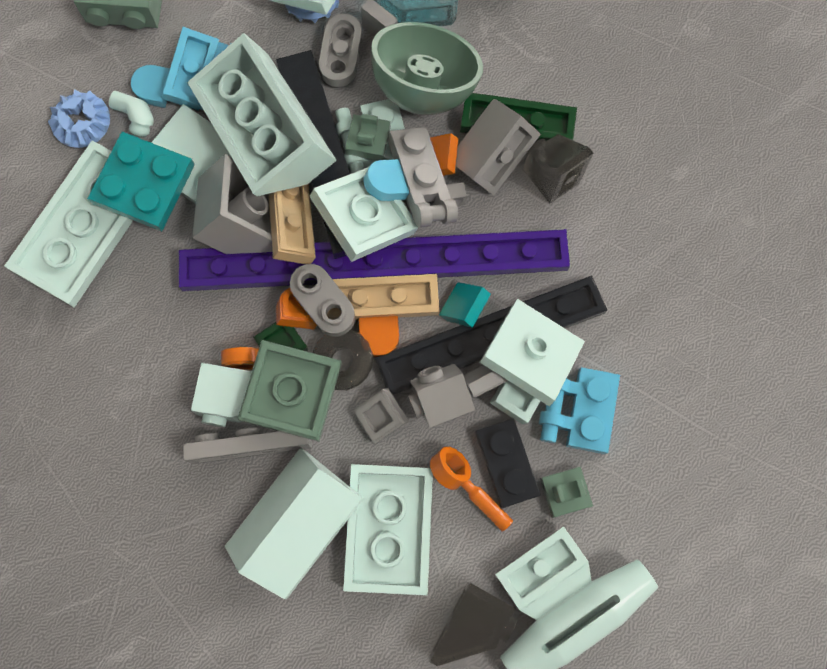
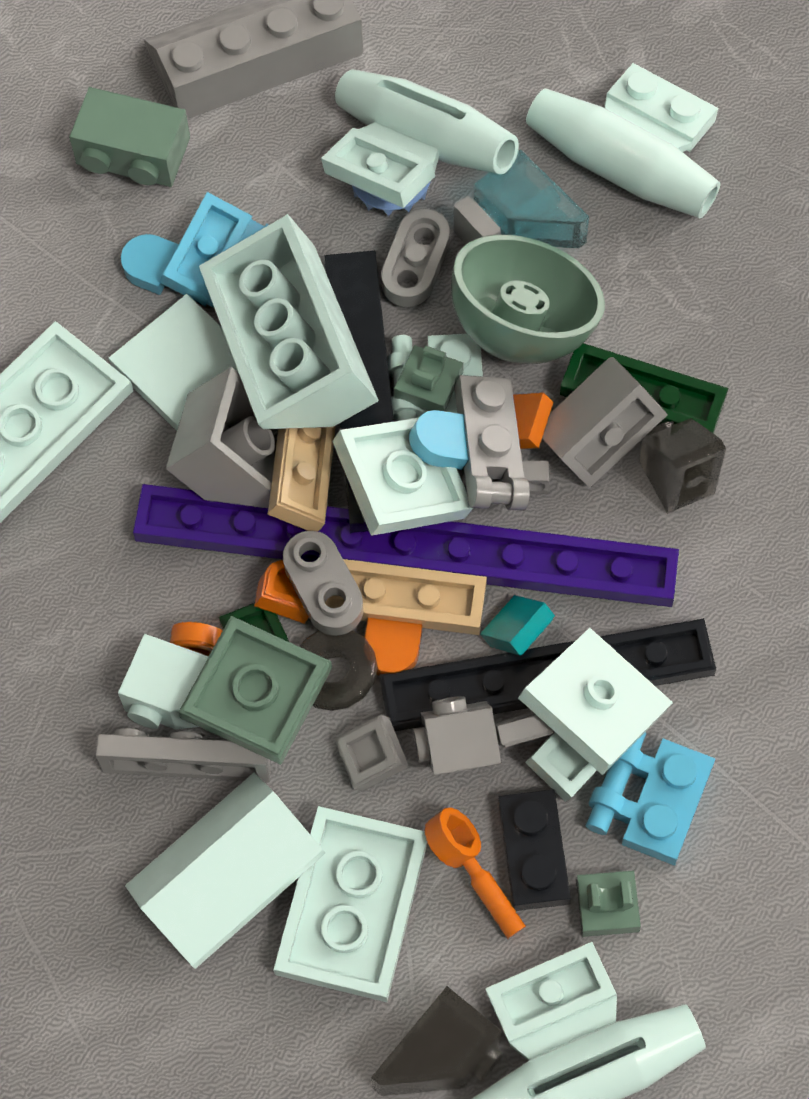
camera: 15 degrees right, 10 degrees down
(85, 131) = (46, 308): light blue gear -> none
(137, 111) = (122, 293): light aqua arm -> none
(141, 181) = (111, 385): teal plate -> none

